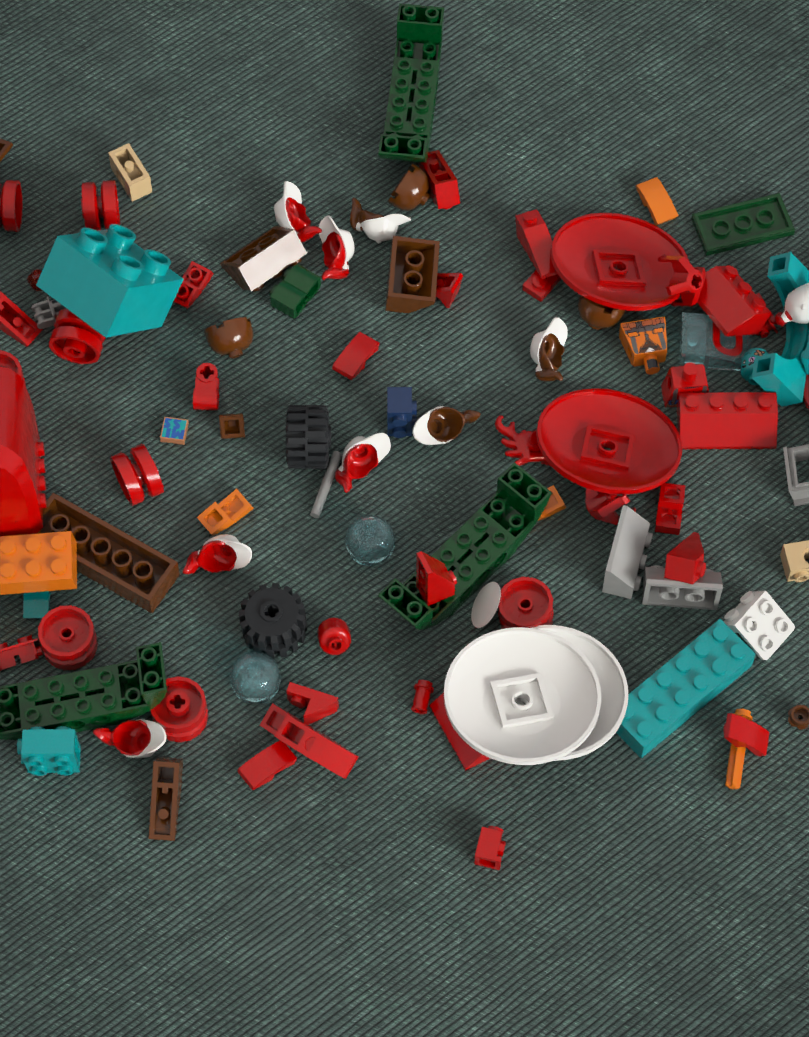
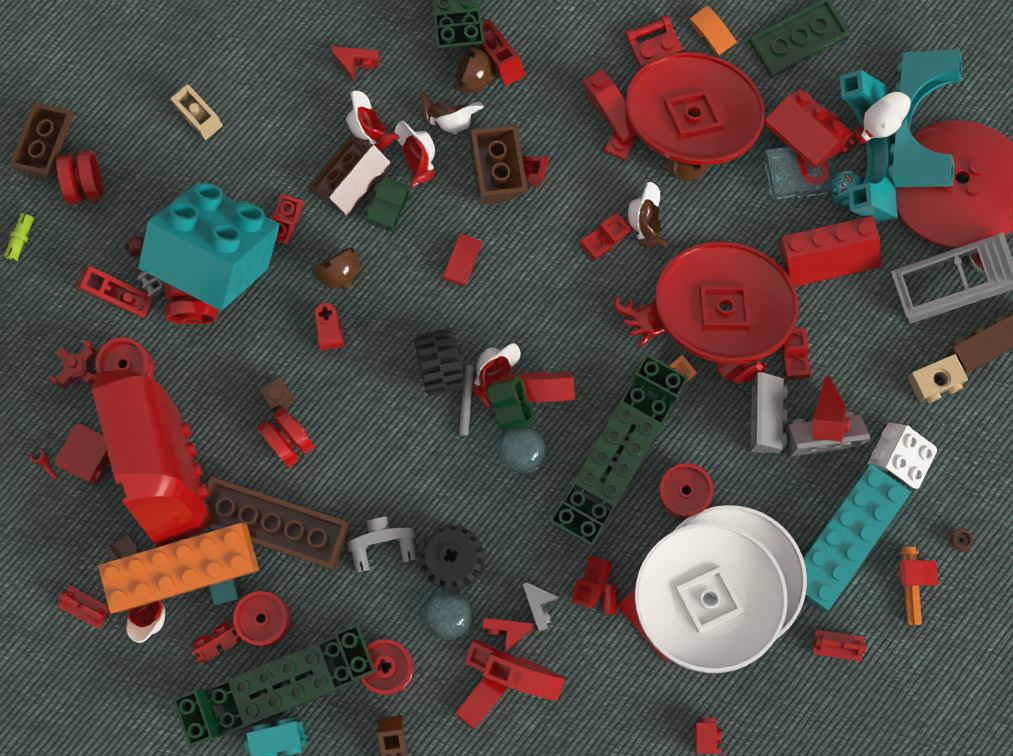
camera: 10 degrees left, 15 degrees up
(97, 207) = (174, 159): red wheel -> none
(134, 737) = (352, 707): red hair -> none
(139, 433) = (277, 395): none -> reddish brown brick
(174, 430) = (308, 376): tile -> none
(206, 586) = (380, 532): none -> light grey connector
(219, 555) = (382, 500): red hair -> none
(226, 513) = (378, 452): orange slope -> none
(232, 426) = (362, 360): reddish brown slope -> none
(295, 155) = (351, 57): none -> red slope
(334, 636) = (513, 559): red head -> none
(350, 681) = (536, 598): none -> light grey slope
(368, 490) = (510, 403): none -> dark green brick
(399, 483) = (547, 387): none -> red slope
(400, 411) = (521, 314): dark blue brick -> none
(405, 681) = (590, 588): none -> red slope
(433, 579) = (599, 493): red slope -> none
(442, 425) = (563, 318): reddish brown hair -> none
(485, 604) = (648, 495): white sticker -> none
(503, 365) = (605, 237): none -> red slope
(596, 204) = (655, 47): none -> red plate
(645, 342) = (736, 186): torso -> none
(648, 790) = (838, 645): none -> red hinge
(683, 379) = (784, 222): red torso -> none
(685, 280) = (765, 118): red piece -> none

